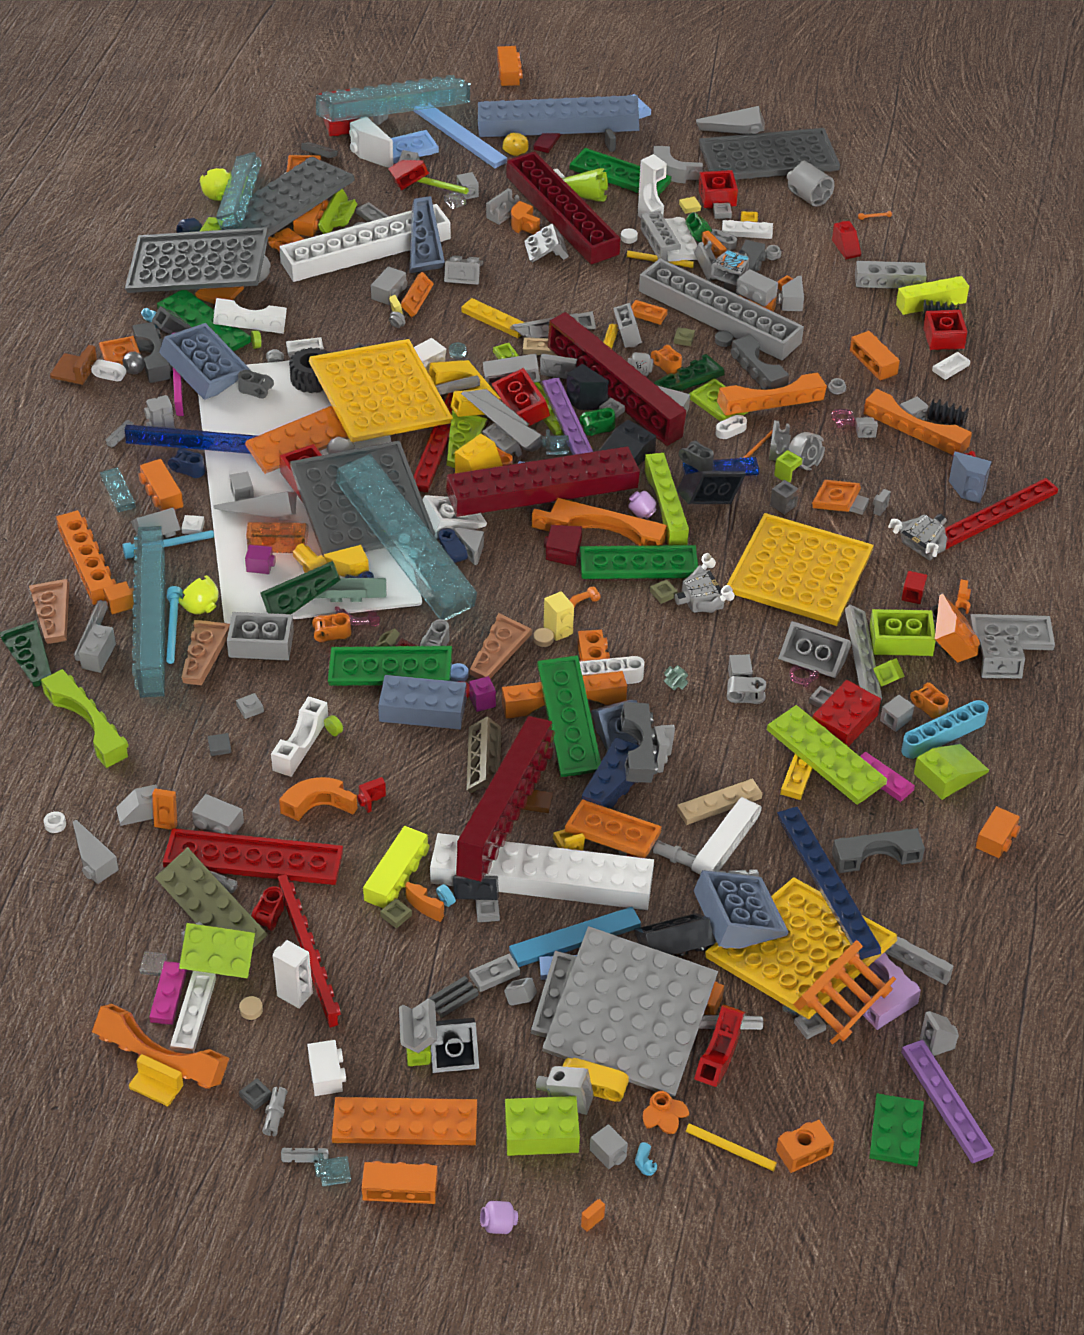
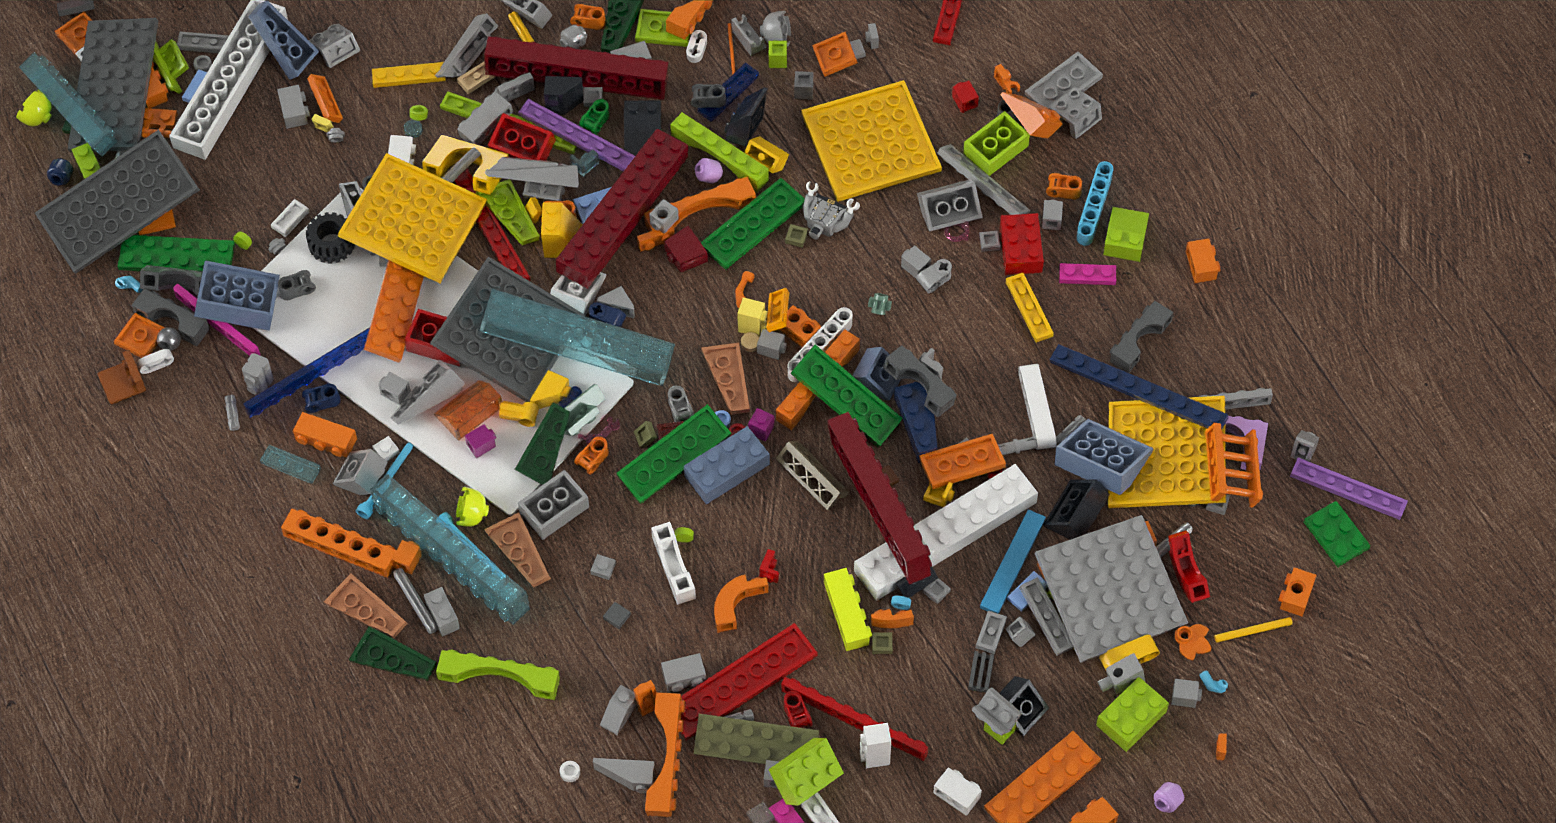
camera: 40 degrees left, 15 degrees up
(96, 885) = (660, 795): none -> orange arch
(251, 1008) = (860, 791): tan tile -> none
(268, 319) = (199, 234): white arch -> none
(339, 444) = (435, 295): light grey head -> none
(472, 342) = (418, 112): none -> lime tile
(555, 645) = (771, 344): none -> light grey brick
(566, 505) = (663, 209): none -> light grey brick
(585, 625) = (777, 310): none -> light orange tile
(700, 522) = (767, 154): none -> yellow brick
(718, 801) = (1002, 381): tan plate -> none
(827, 754) = (1040, 287): lime plate -> none
(888, 672) = (1015, 184): lime panel -> none
(922, 534) = (933, 45): light grey torso -> none

